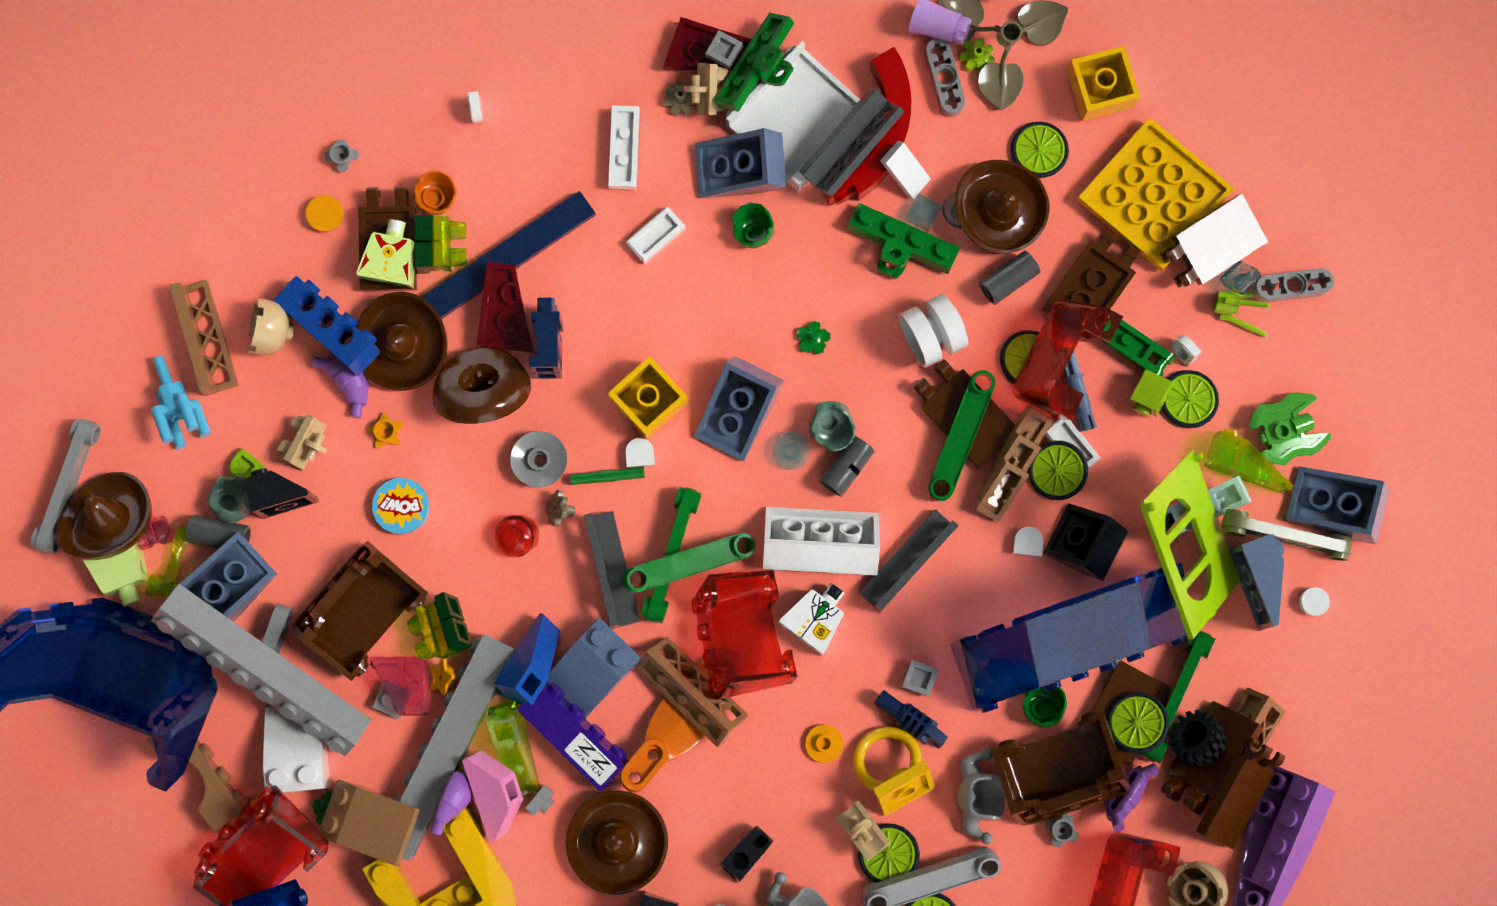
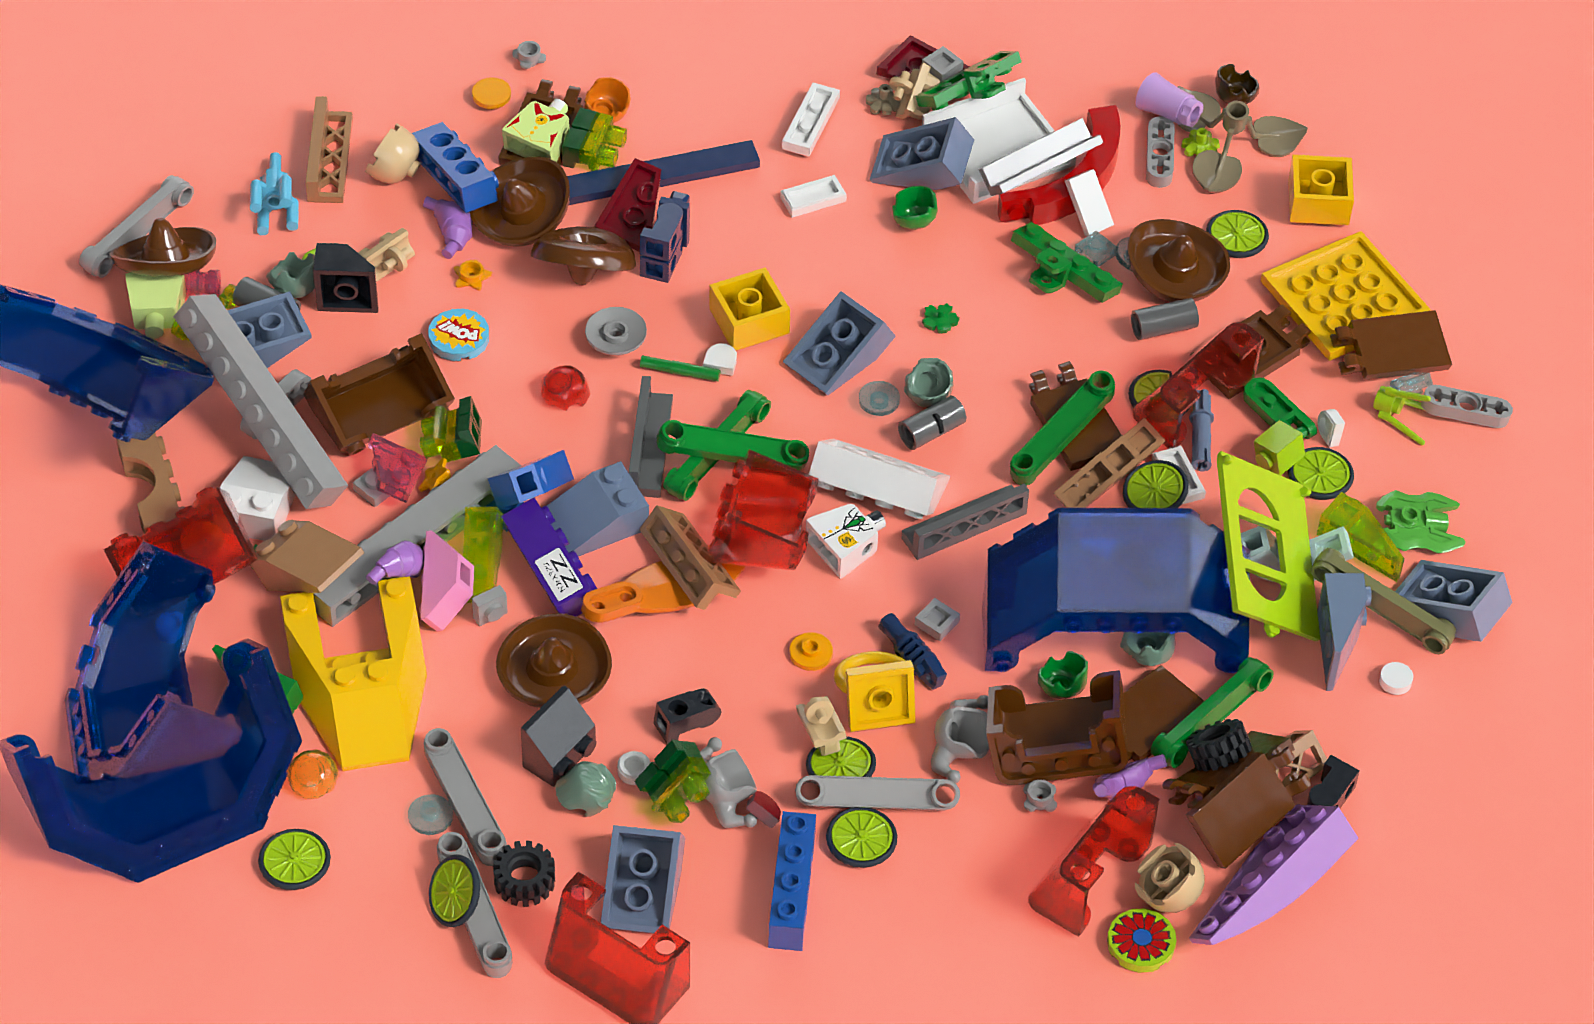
camera: 20 degrees right, 30 degrees down
(475, 107) = (677, 49): white tile -> none
(559, 508) = (619, 377): dark tan plant -> none
(941, 326) = (1075, 329): white wheel -> none
(1138, 722) = (1159, 715): lime wheel -> none
(1297, 741) = (1337, 783): none -> black leg

